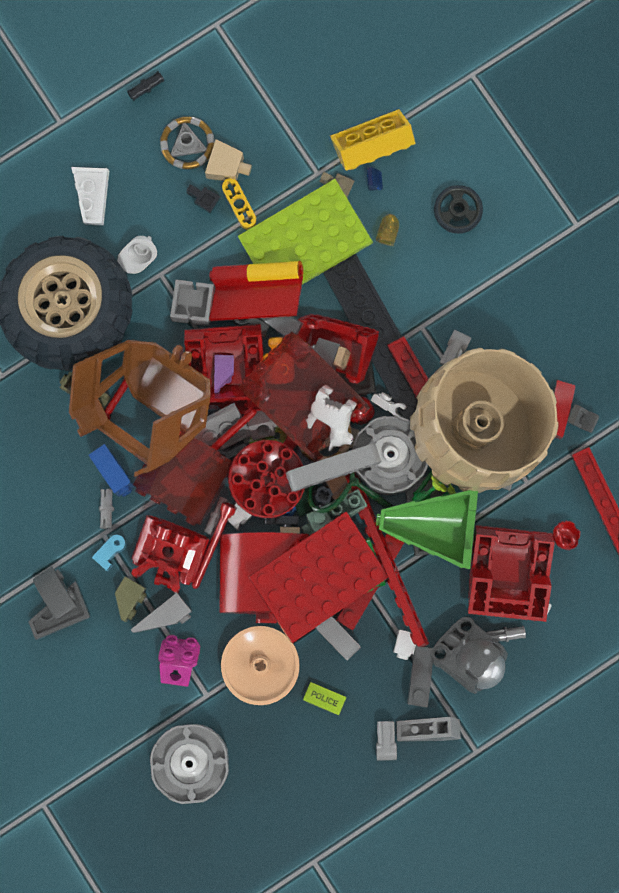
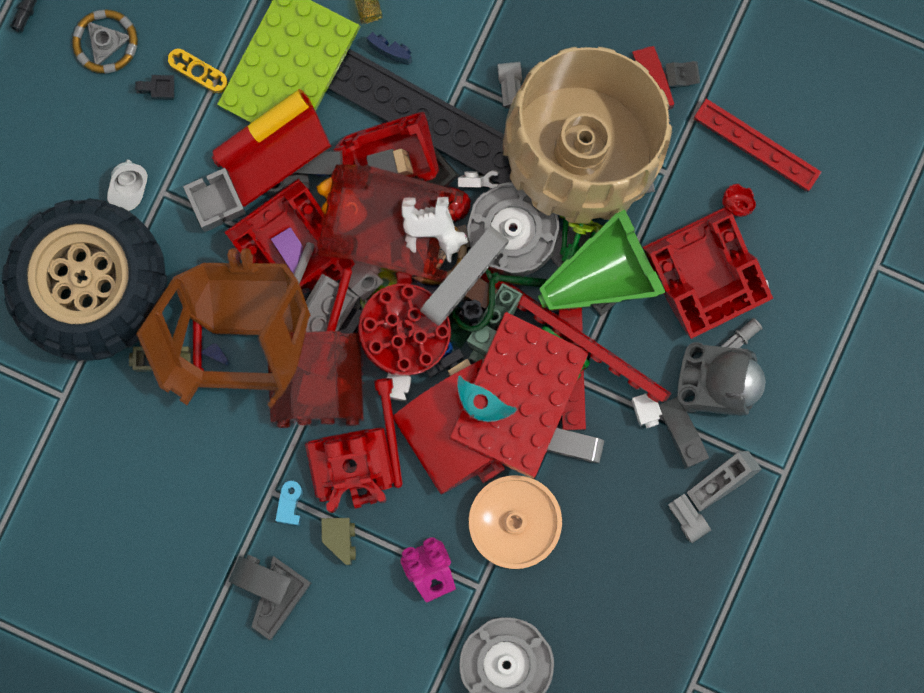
camera: 30 degrees left, 0 degrees up
(92, 193) = (39, 152): white wing -> none
(106, 509) = (258, 463): light grey pin -> none
(111, 471) = (240, 421): blue window -> none
(126, 413) = (216, 354): none -> clear blue slope
(169, 613) = (389, 529): light grey slope -> none
(215, 517) = (375, 403): light grey pin -> none
(226, 163) = (158, 37): tan torso -> none
(226, 386) = (303, 262): none -> light grey bar
(292, 578) = (494, 410): none -> teal piece
(324, 698) = (600, 515): lime tile -> none
(387, 277) = (395, 52): none -> dark blue slope
(408, 364) = (474, 128): red tile -> none

